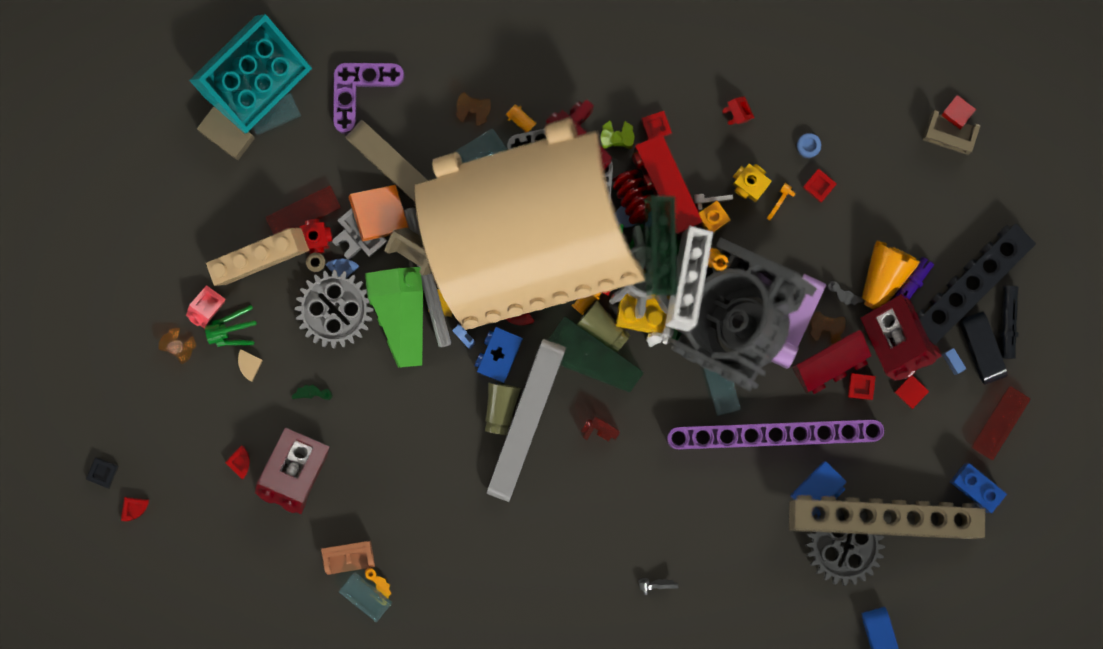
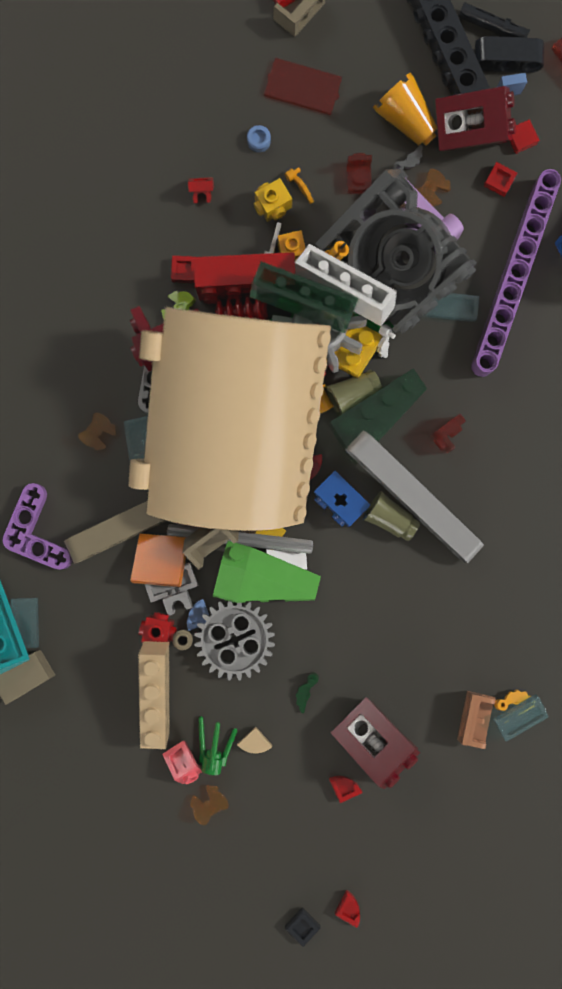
camera: 65 degrees left, 0 degrees up
(311, 207) = (128, 623): clear red plate -> none
(429, 336) = (295, 558): none -> white sticker
(464, 336) = (309, 525): medium blue tile -> none
(520, 118) = (125, 390): light orange pin -> none
(811, 252) = (358, 173): none -> clear red bracket
(819, 185) = (300, 143): red tile -> none
(833, 362) = (469, 191): dark red slope -> none
(876, 166) = (303, 86): none -> clear red piece
(915, 279) = (425, 90): dark purple pin -> none

